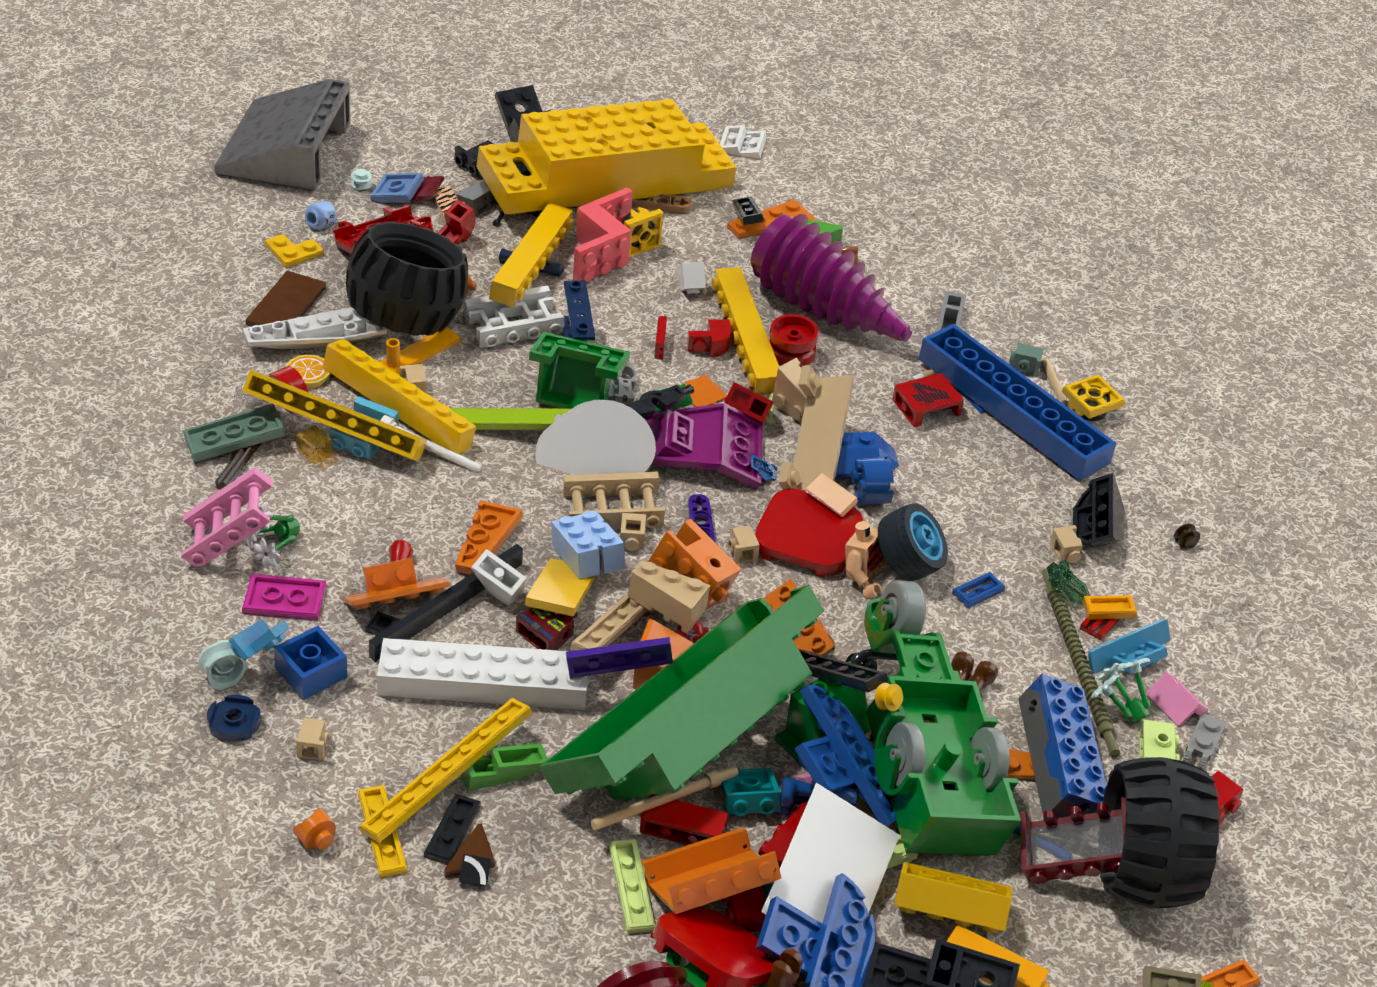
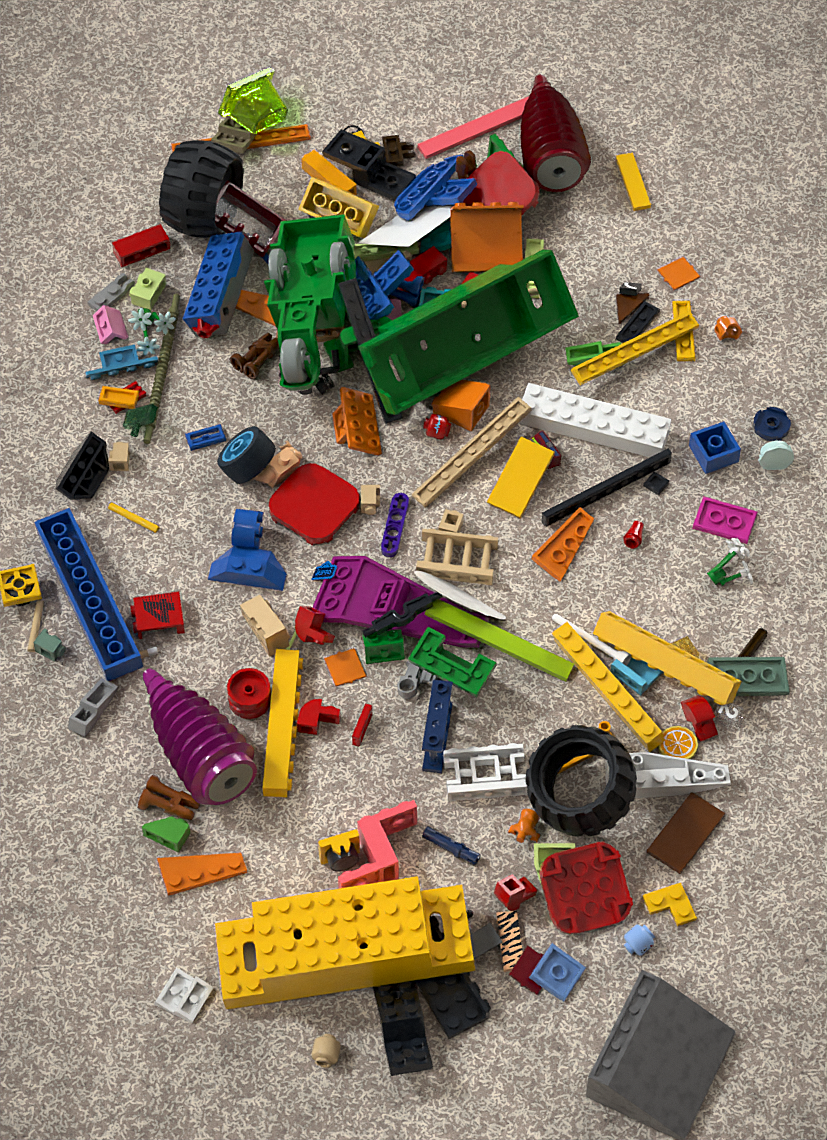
camera: 160 degrees left, 15 degrees up
(221, 505) = (755, 569): bright pink fence -> none
(256, 638) = (749, 454): dark azure bracket -> none
(312, 739) = (720, 394): tan brick -> none
(361, 179) = (590, 992): light aqua wheel -> none
(393, 580) = (643, 498): orange bracket -> none
(405, 920) = (678, 273): none -> orange piece
(414, 375) = (590, 709): tan brick -> none
(499, 577) = (563, 486): white slope -> none
(531, 255) = (457, 822): yellow brick -> none
(579, 541) = (492, 506): light blue piece -> none
(619, 657) = (503, 378): dark purple plate -> none
(670, 593) = (447, 435): tan wedge -> none
(691, 277) = (309, 798): white slope -> none
(697, 557) = (412, 451): orange torso -> none
(747, 210) = (223, 872): black tile -> none
(820, 429) = (274, 569): tan bracket -> none
(831, 495) = (287, 516): light nougat tile -> none
(888, 696) = (340, 276): yellow wheel -> none
(1012, 494) = (133, 517): none -> yellow bar
(1187, 536) = (21, 449): dark brown wheel -> none

